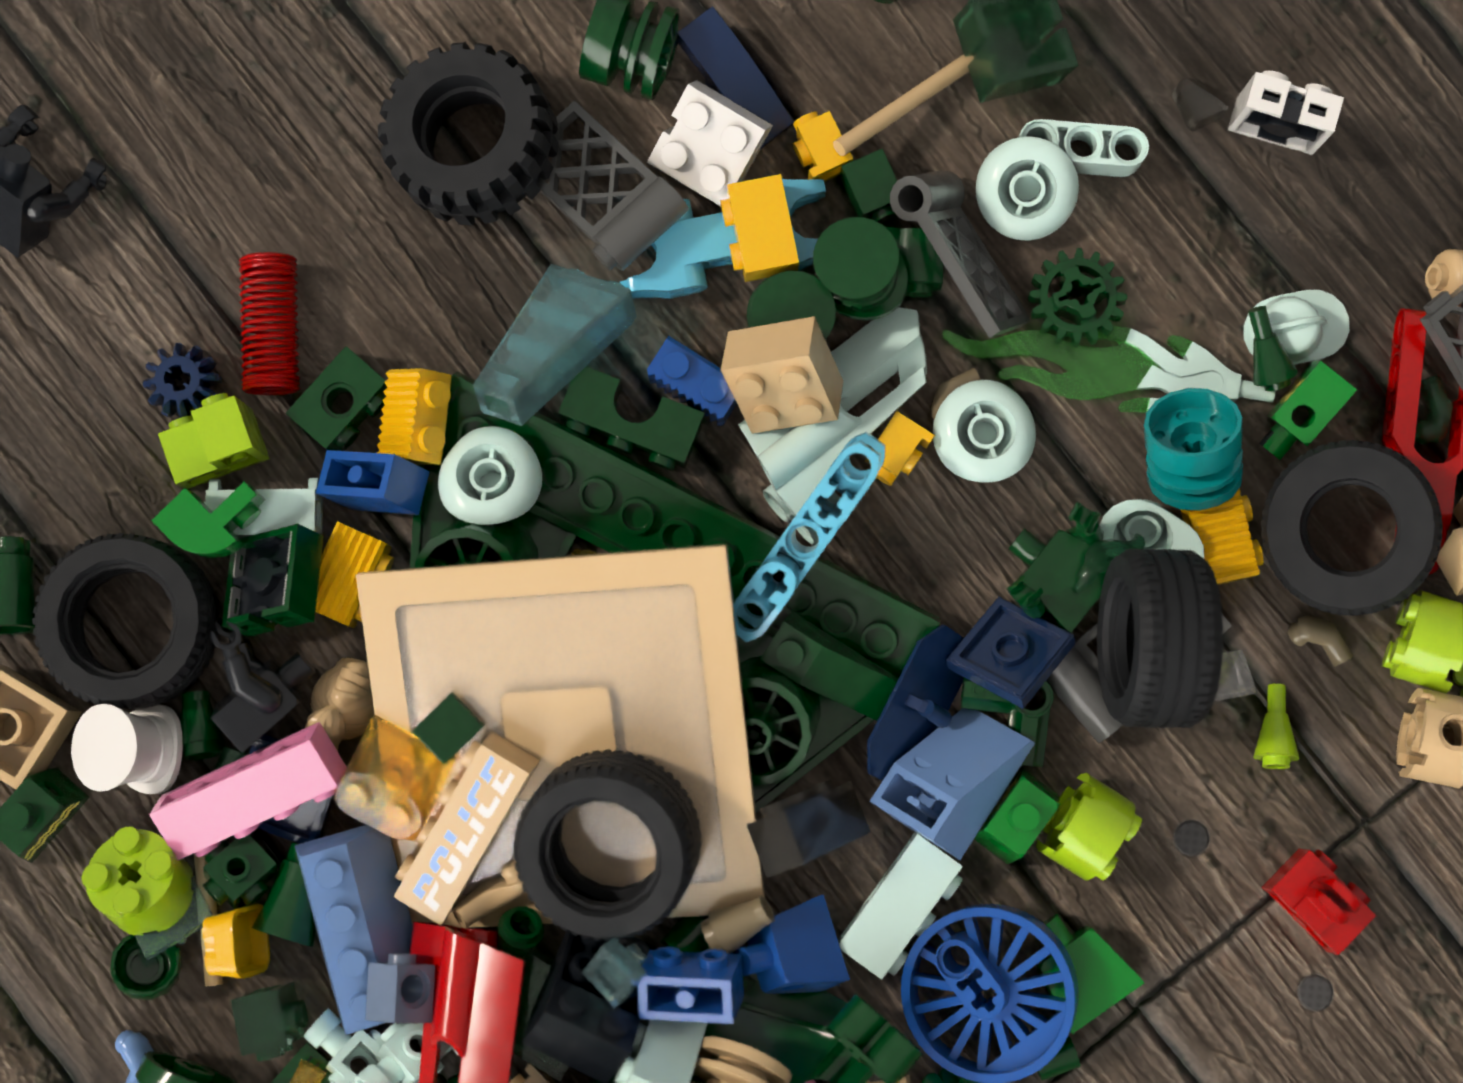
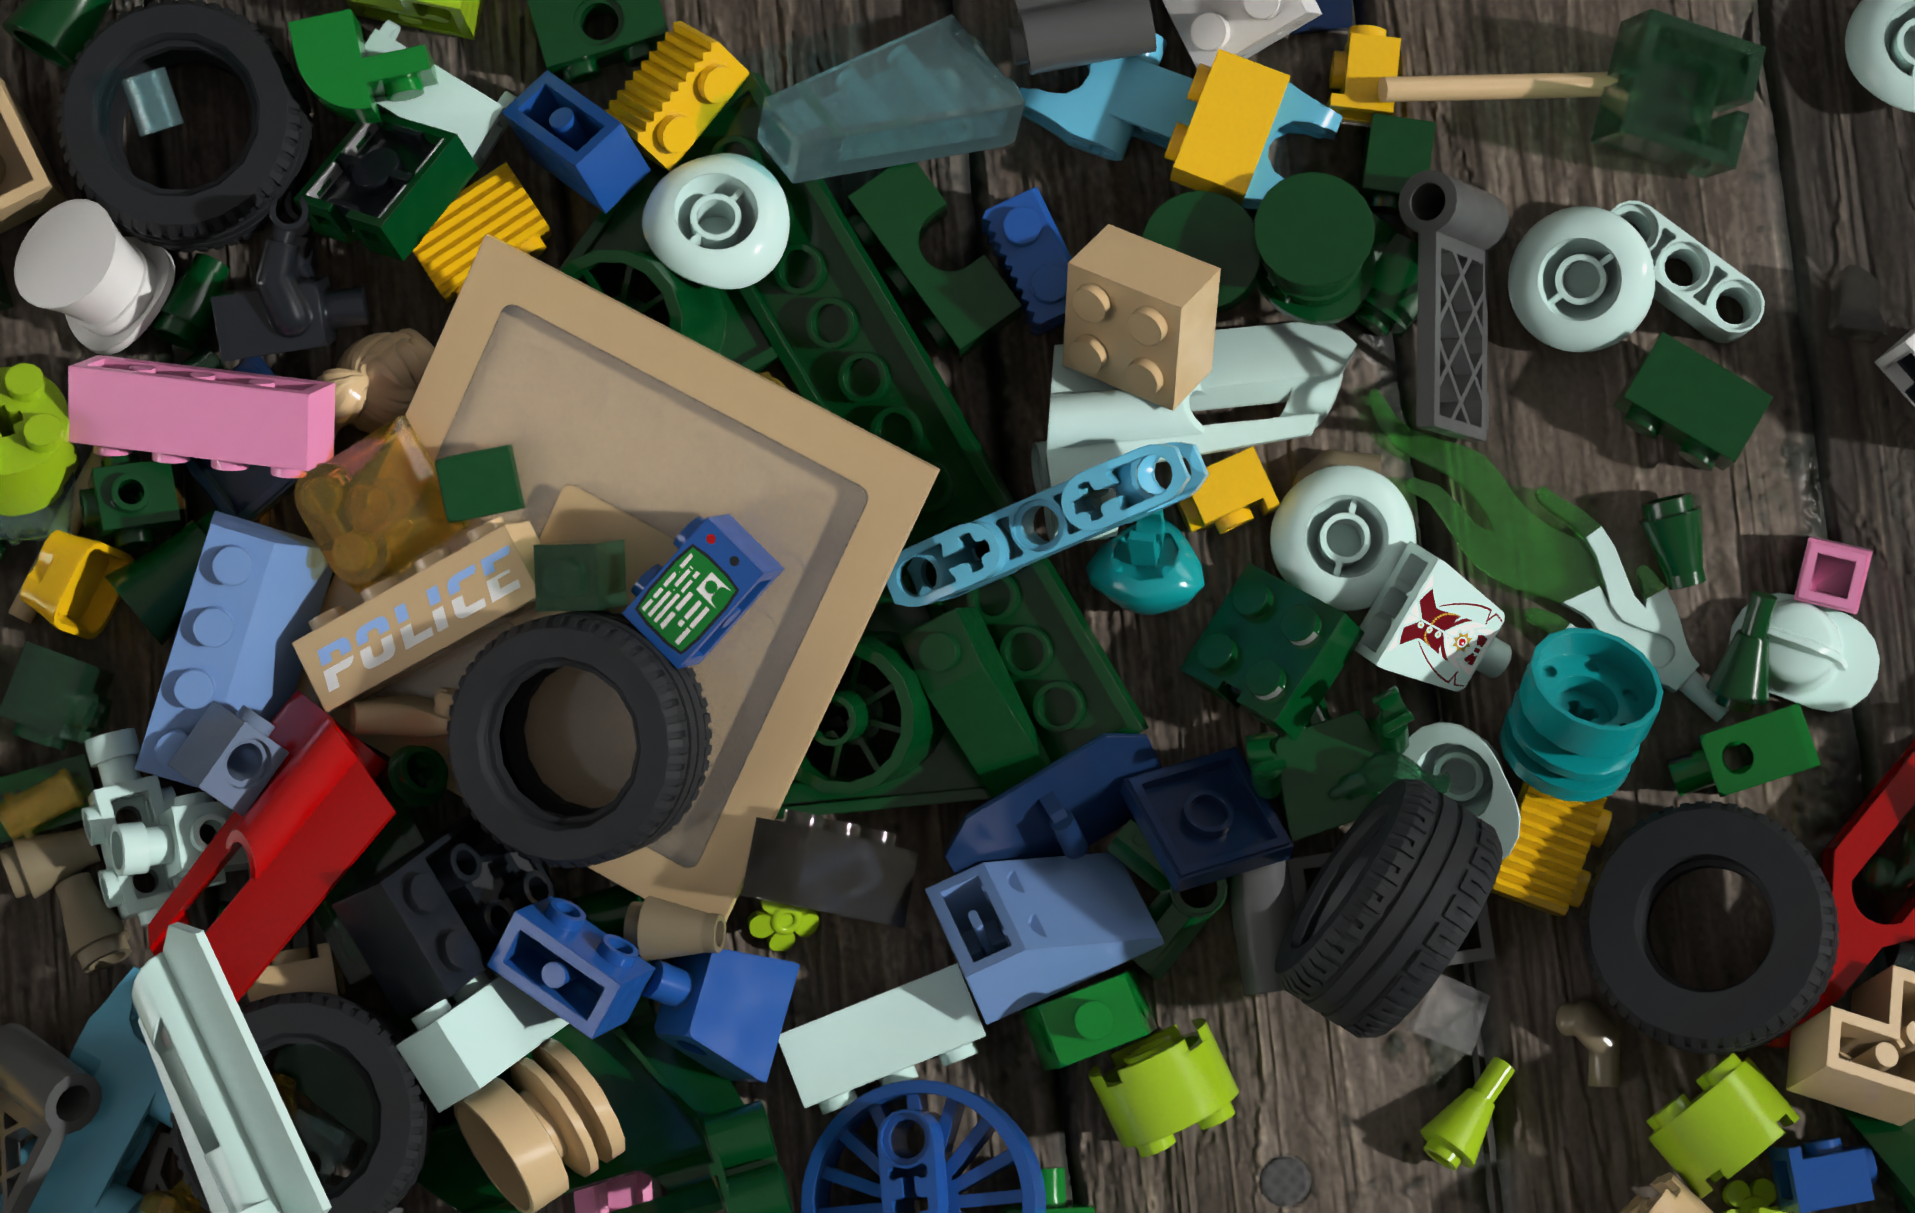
camera: 30 degrees right, 0 degrees up
(98, 620) = (152, 101): none -> clear light blue hinge
(545, 745) = (580, 575): none -> clear green brick
(616, 970) = (495, 890): clear light blue tile -> none
(625, 708) = (701, 589): none -> brick
(795, 879) = (779, 922): none -> lime plant
(879, 524) = (1147, 567): none -> teal piece
(986, 526) = (1272, 650): none -> dark green piece
(1070, 450) = (1433, 625): none -> light aqua torso
(1072, 280) = (1533, 445): dark green gear -> none
(1139, 221) = (1691, 403): none -> dark green brick
(1178, 306) = (1675, 536): none -> dark green cone
(1285, 271) = (1833, 574): none -> bright pink slope

